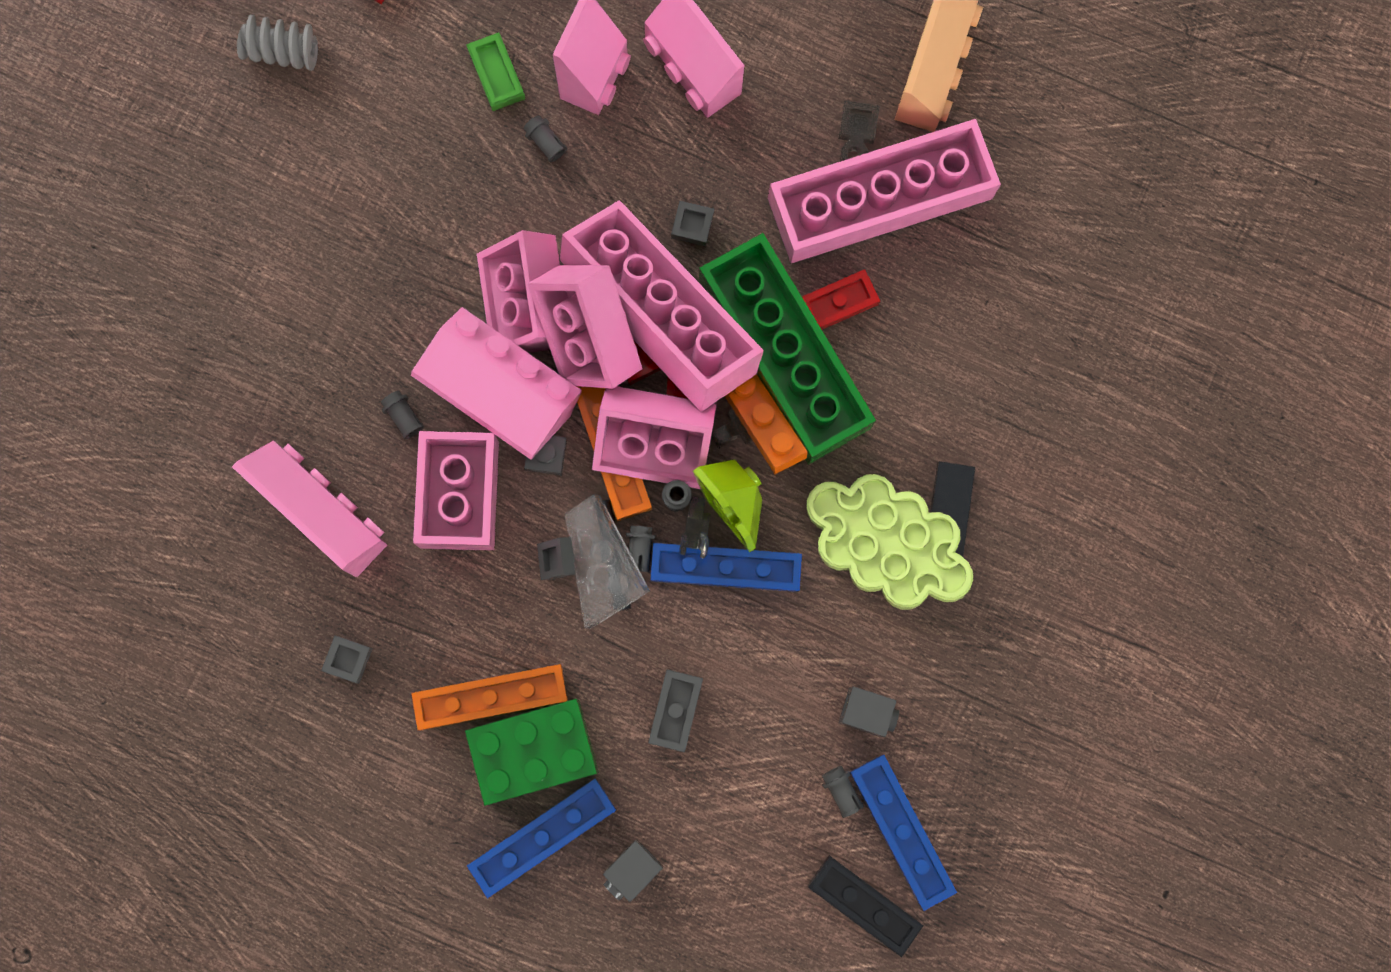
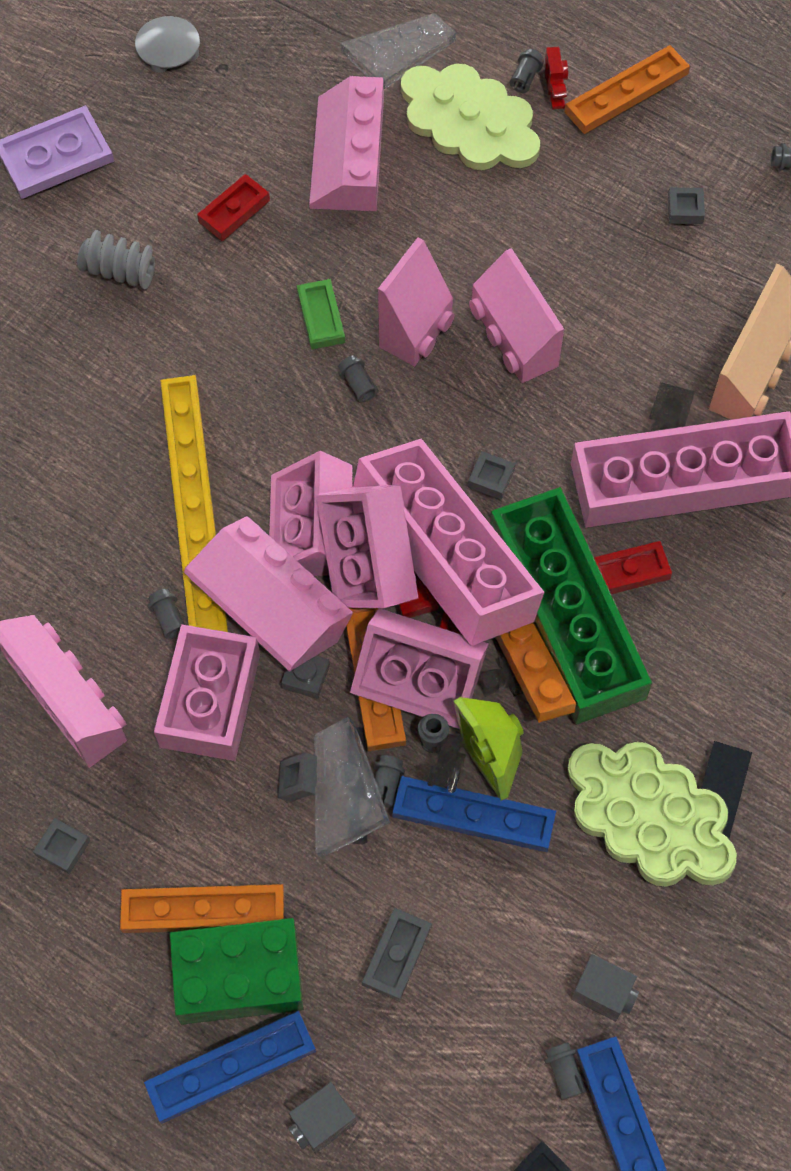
camera: 15 degrees right, 15 degrees down
(401, 285) = (191, 491): none -> yellow tile

